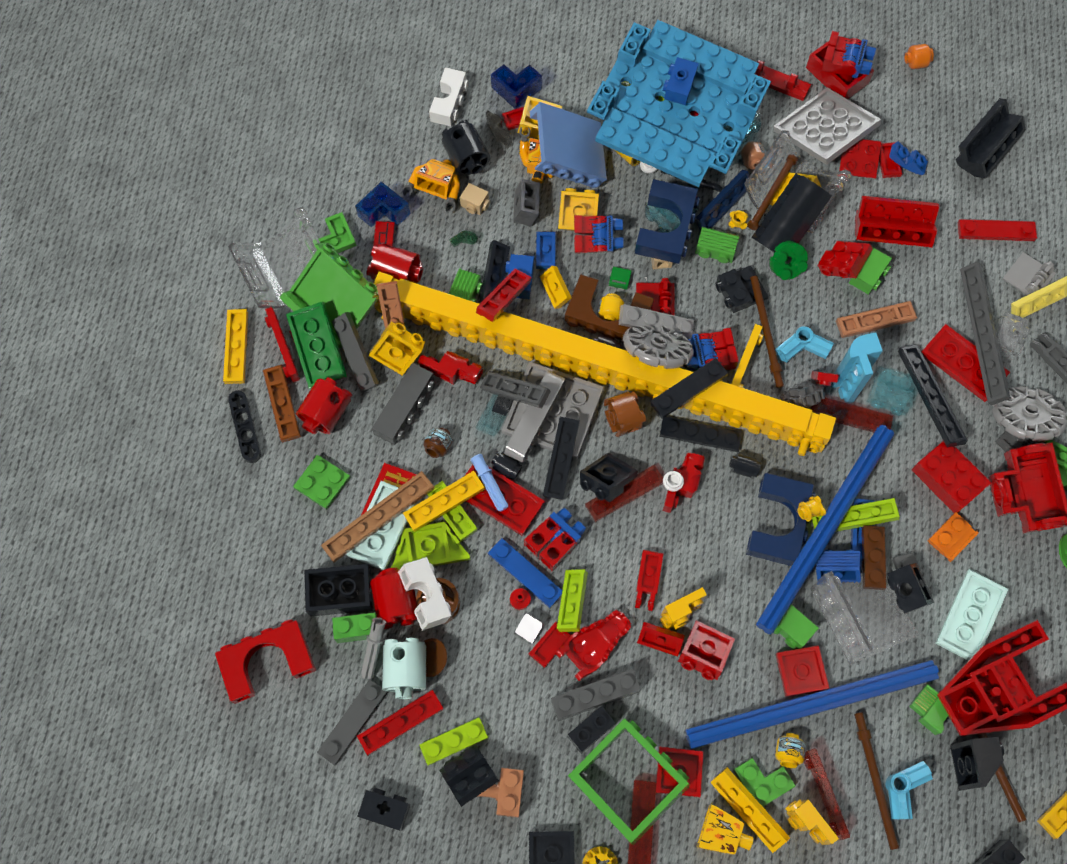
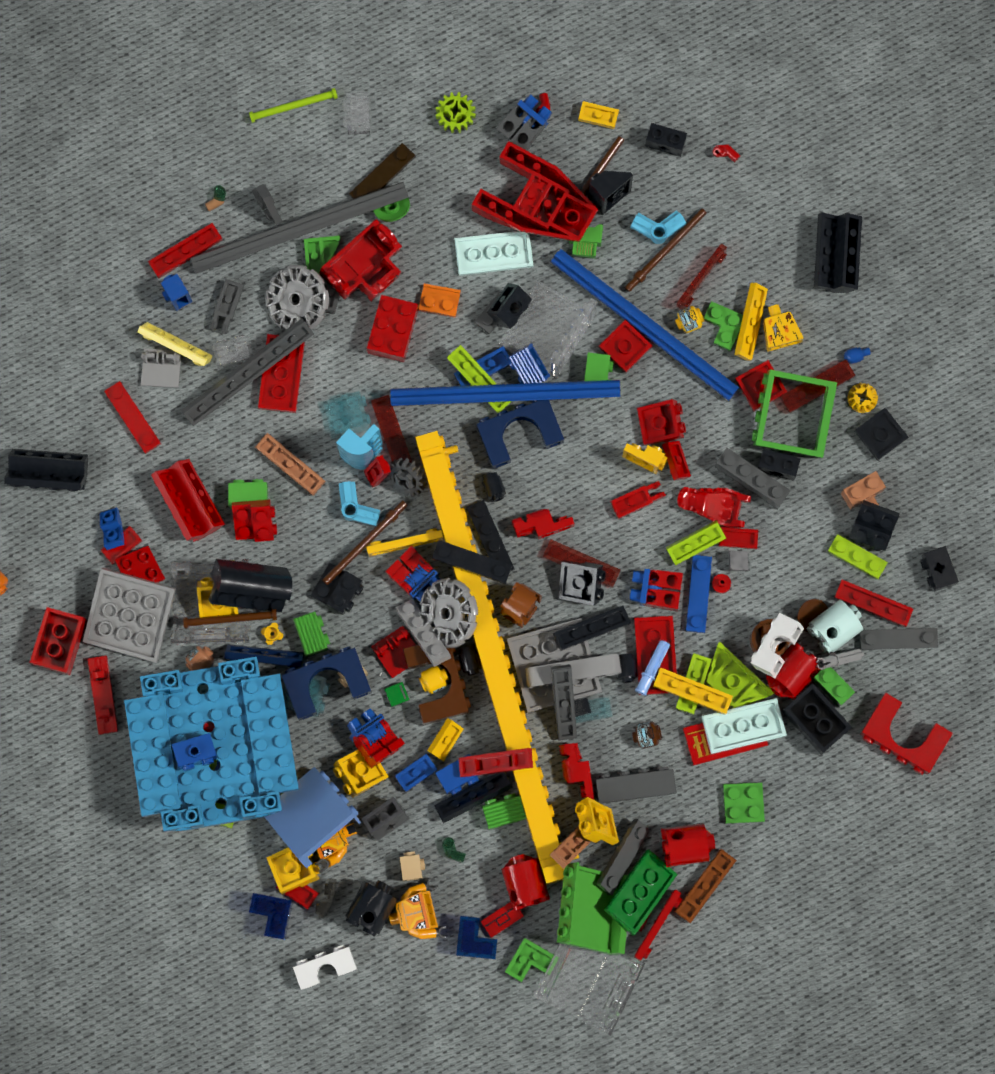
camera: 125 degrees left, 10 degrees up
(235, 346) = (686, 963): yellow plate -> none
(242, 427) = (747, 902): black beam -> none
(377, 517) = (741, 732): medium nougat tile -> none
(673, 481) = (551, 528): white plate -> none
(795, 267) = (296, 564): green plate -> none
(806, 817) = (732, 279): yellow plate -> none
(811, 508) = (501, 412): yellow brick -> none
(846, 56) = (51, 630): hips -> none
(873, 557) = (502, 346): reddish brown plate -> none
(932, 396) = (333, 380): black tile -> none

